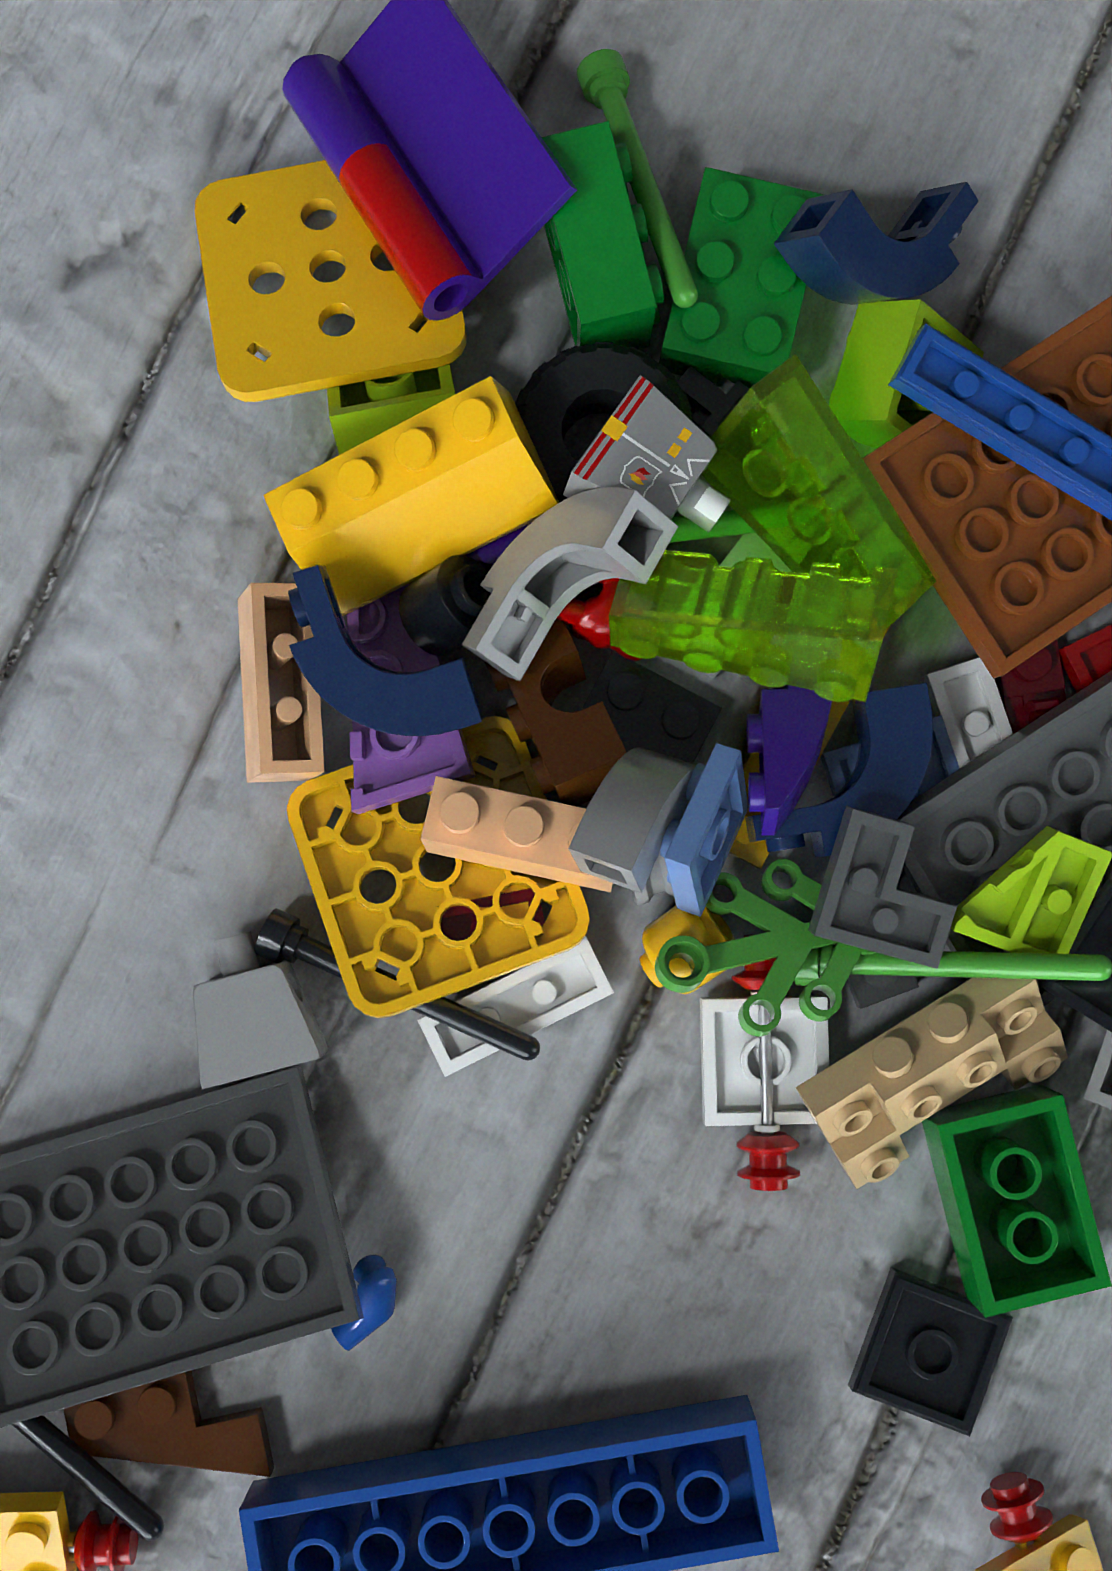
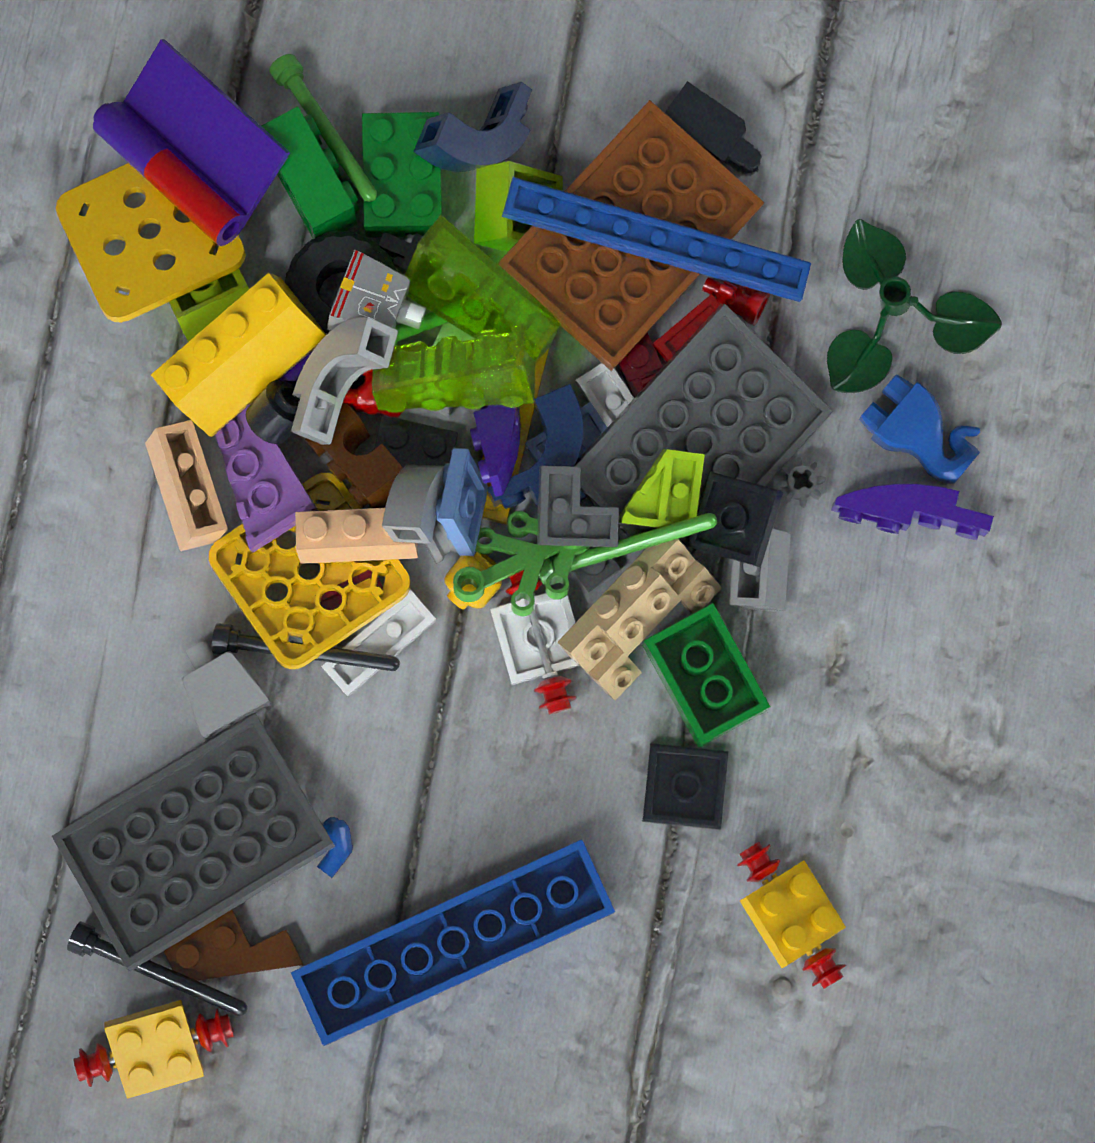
camera: 20 degrees left, 5 degrees down
(367, 693) = (250, 475): dark blue arch -> none

